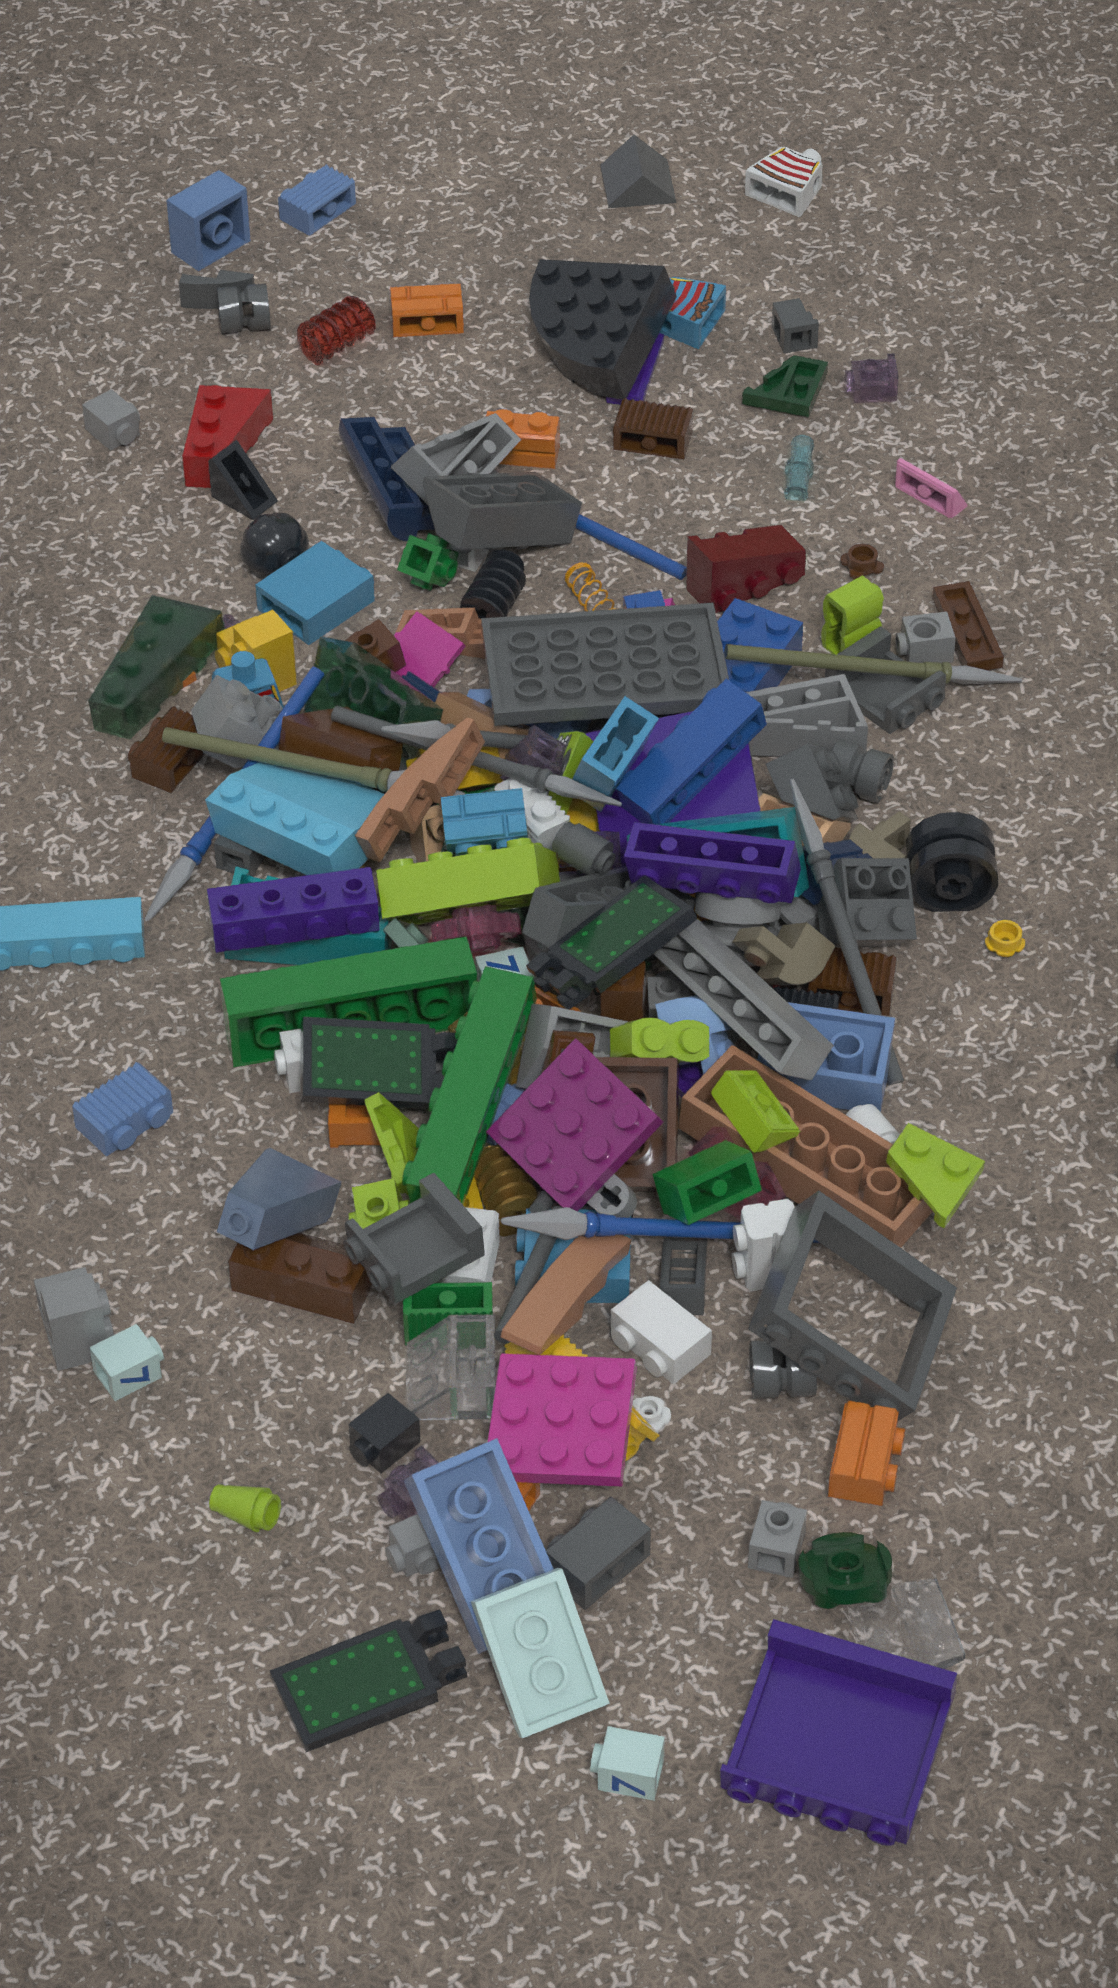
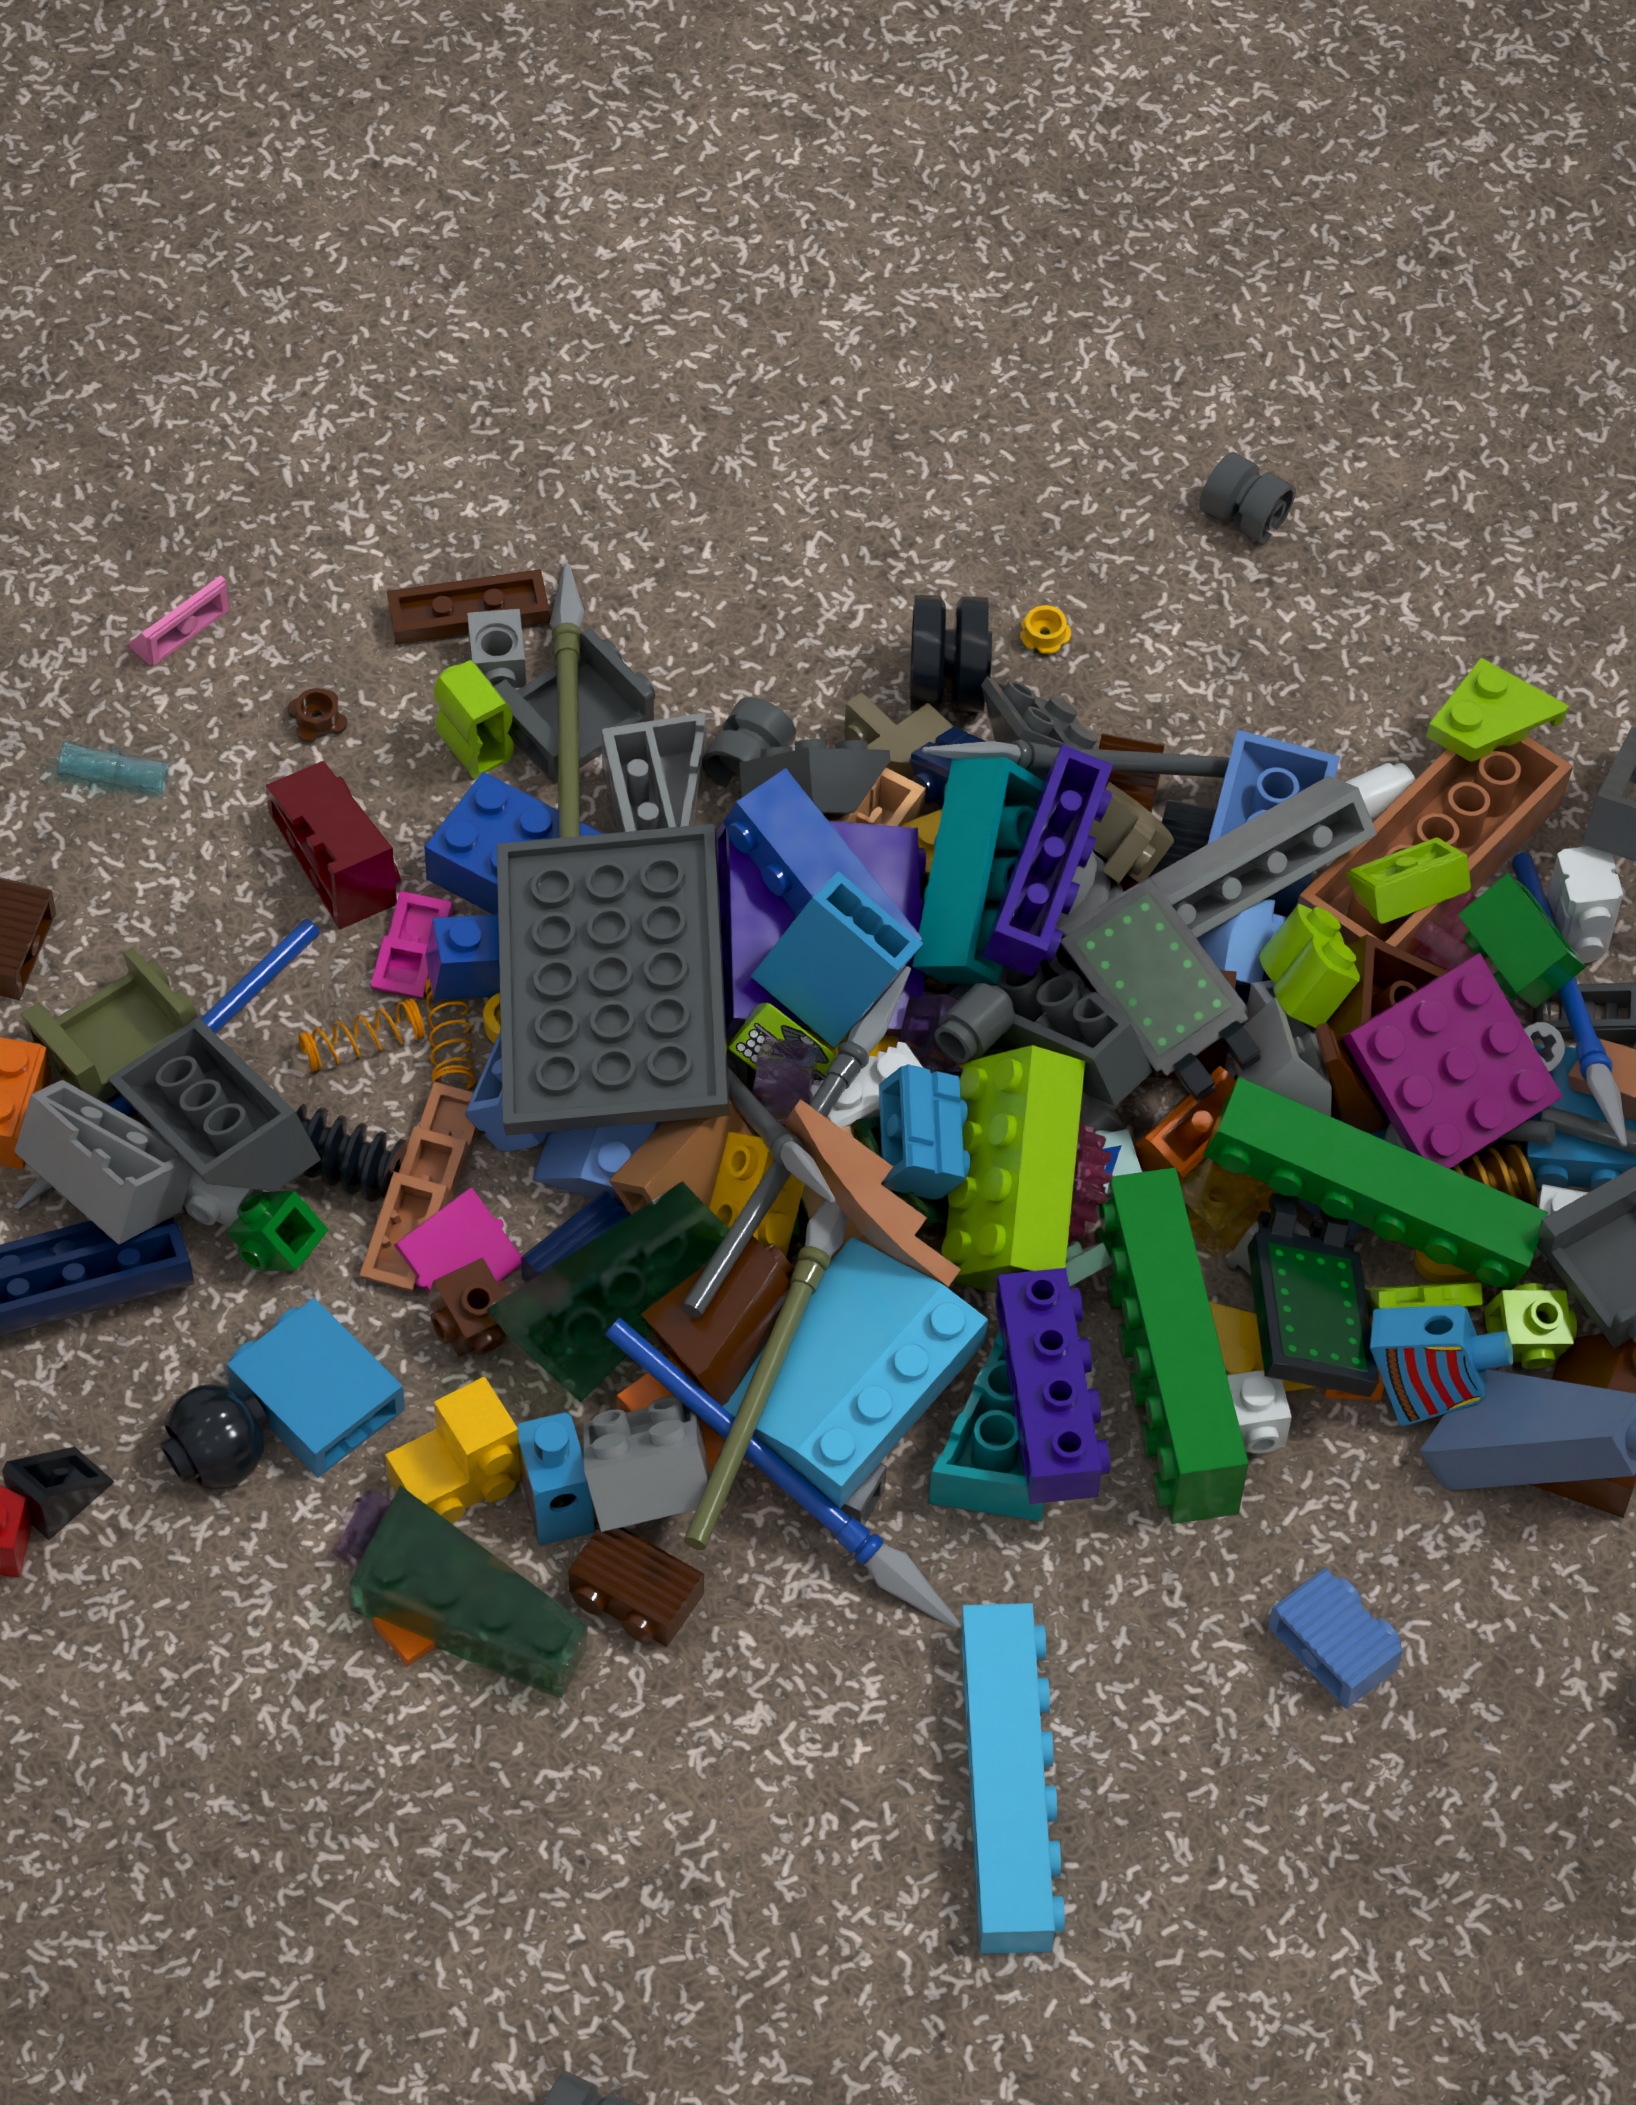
camera: 90 degrees left, 10 degrees up
(331, 1143) = (1434, 1359): none -> dark azure torso
(571, 468) = (110, 1026): none -> olive panel

